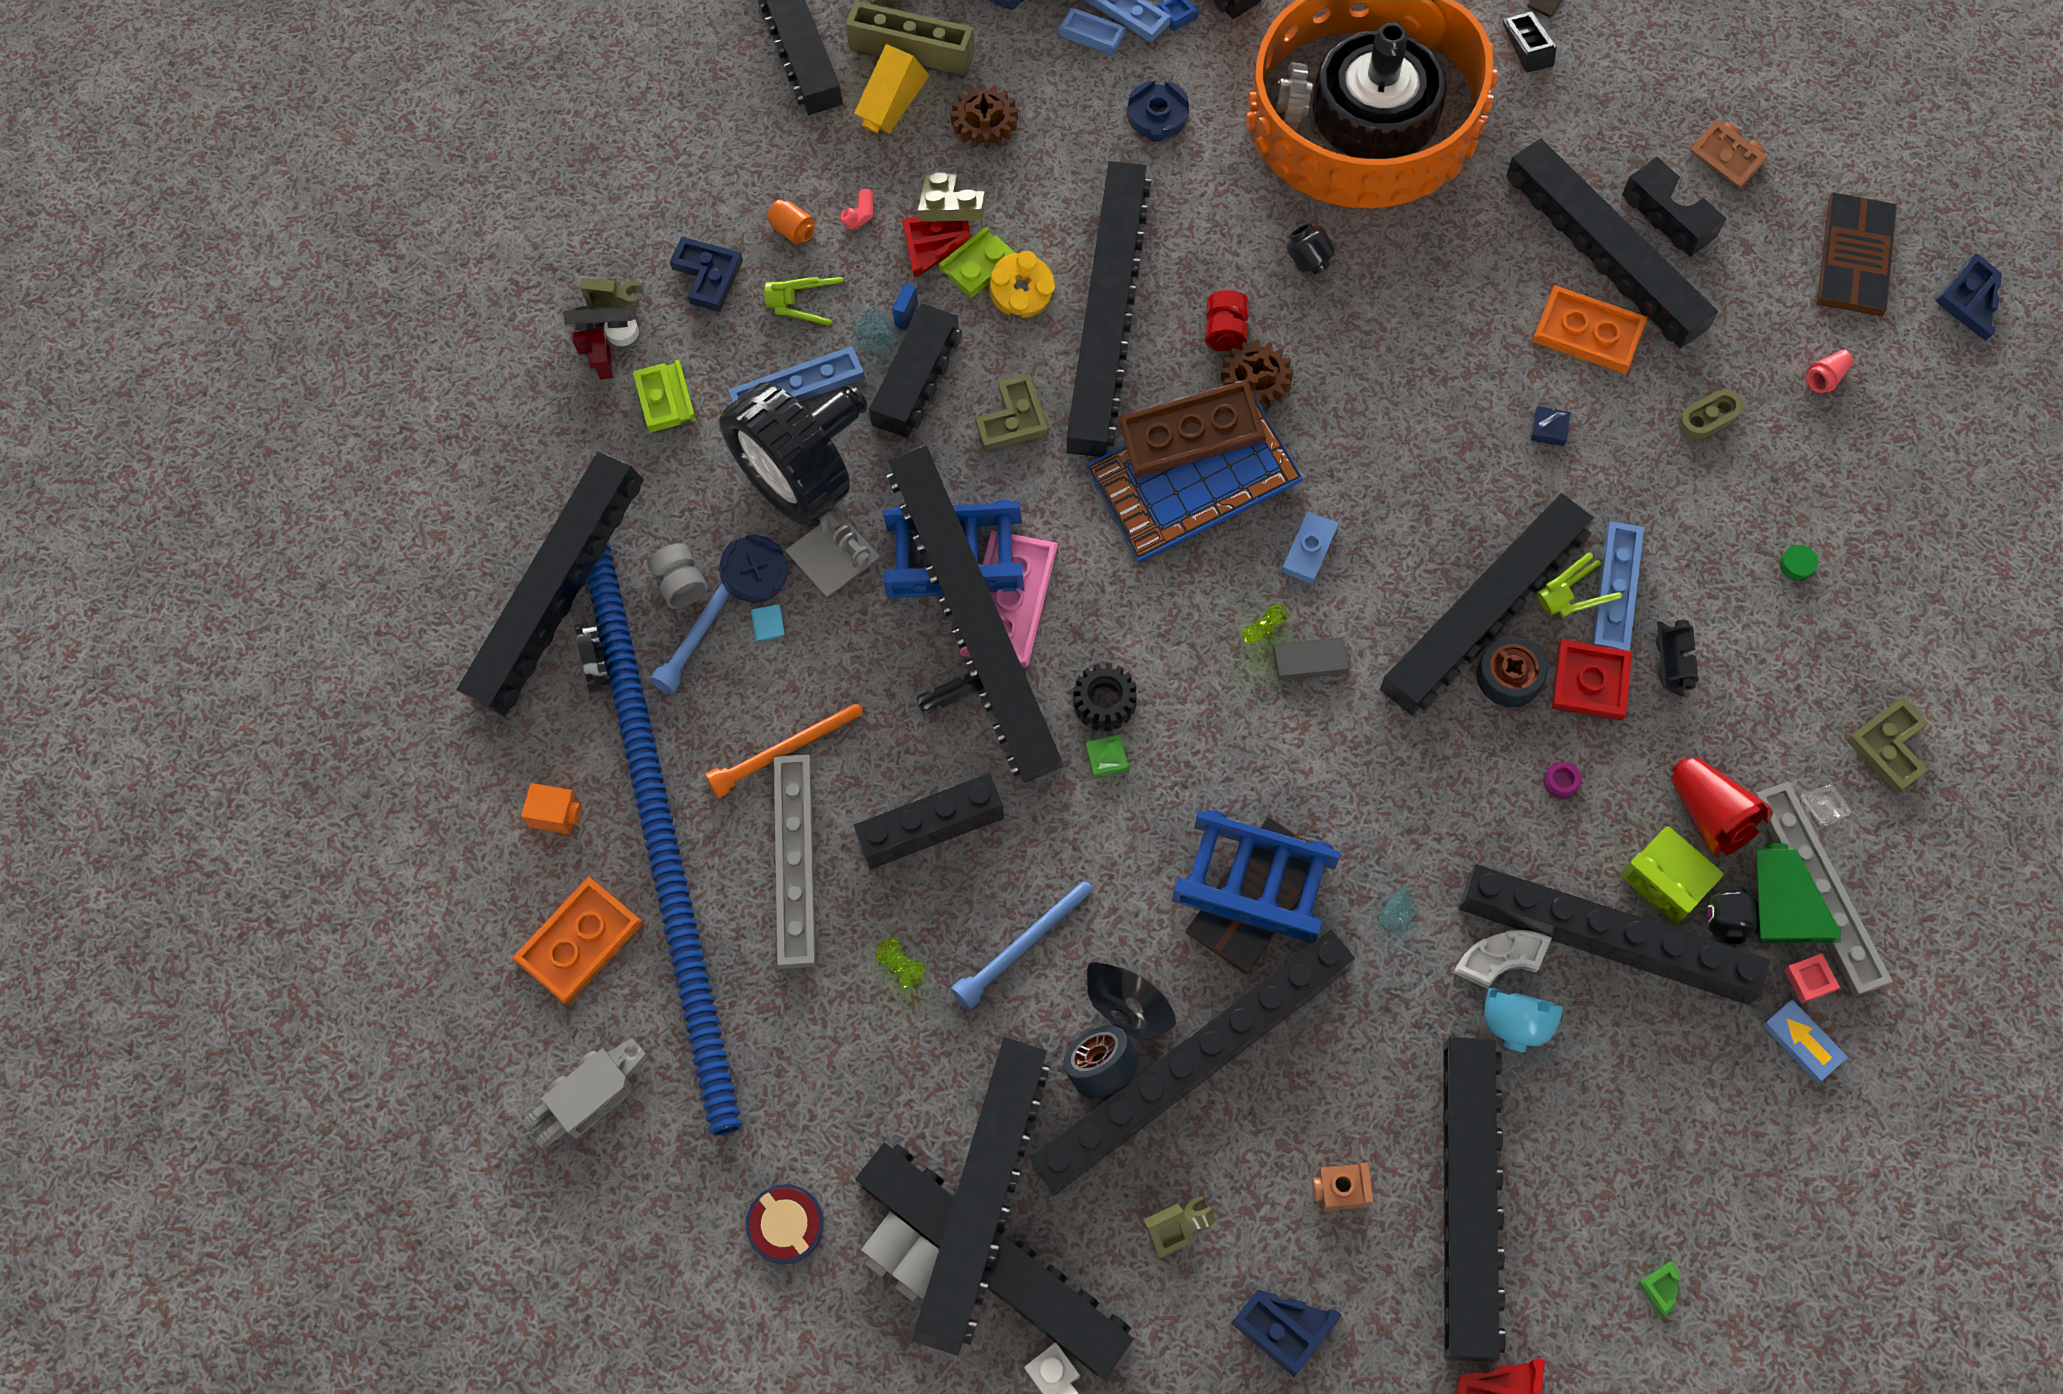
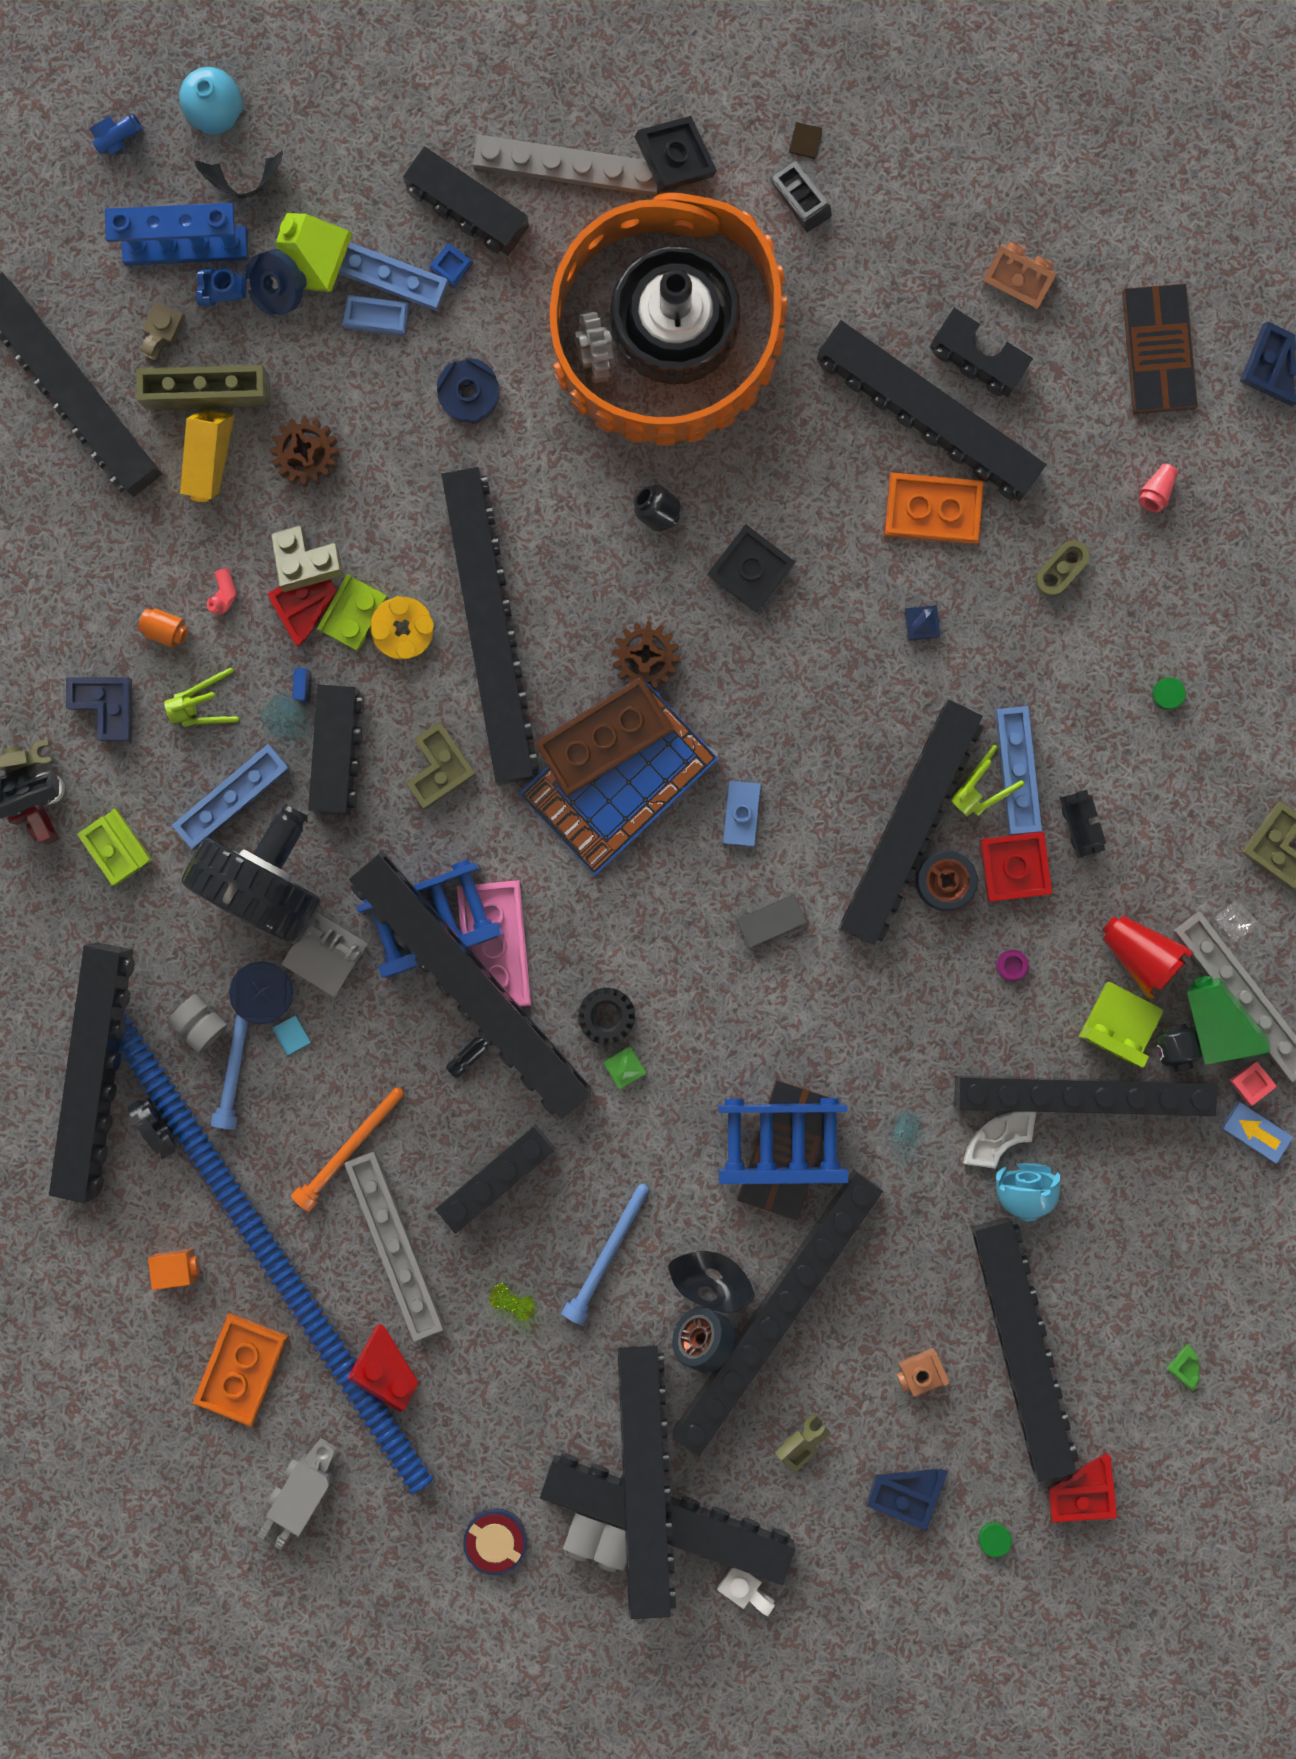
camera: 15 degrees left, 20 degrees up
(733, 987) = (384, 1371): none -> red wing
(1226, 320) = (602, 608): red wheel -> none
(1273, 616) = (728, 893): clear neon green piece -> none
(1388, 329) = (751, 568): none -> black plate

